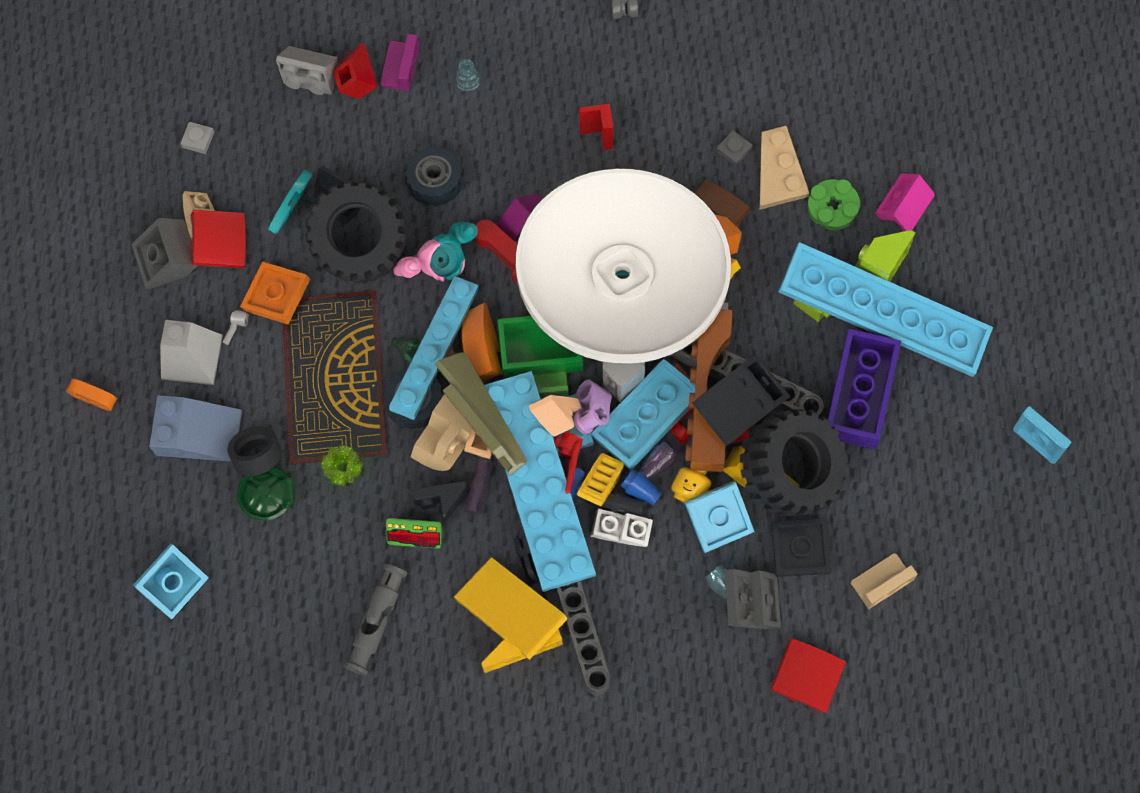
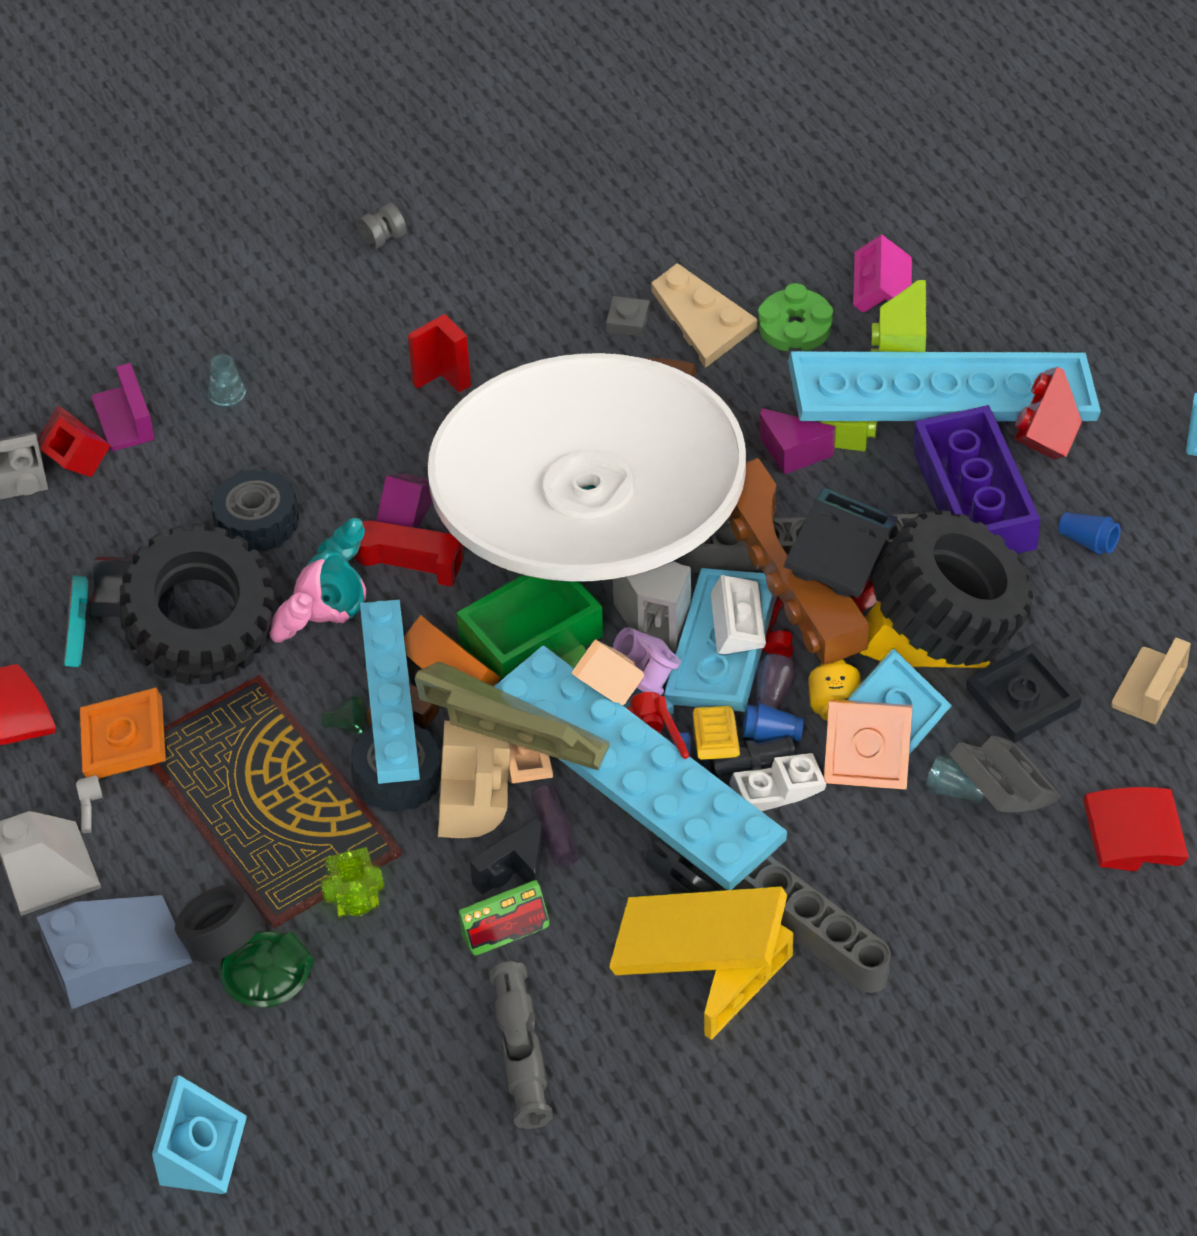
camera: 30 degrees left, 20 degrees down
(661, 406) = (737, 615): none -> white slope
(684, 536) = (868, 744): none -> plate
(771, 300) = (795, 442): none -> magenta slope
(914, 457) = (1091, 531): none -> blue cone
(936, 368) = (1052, 416): none -> slope

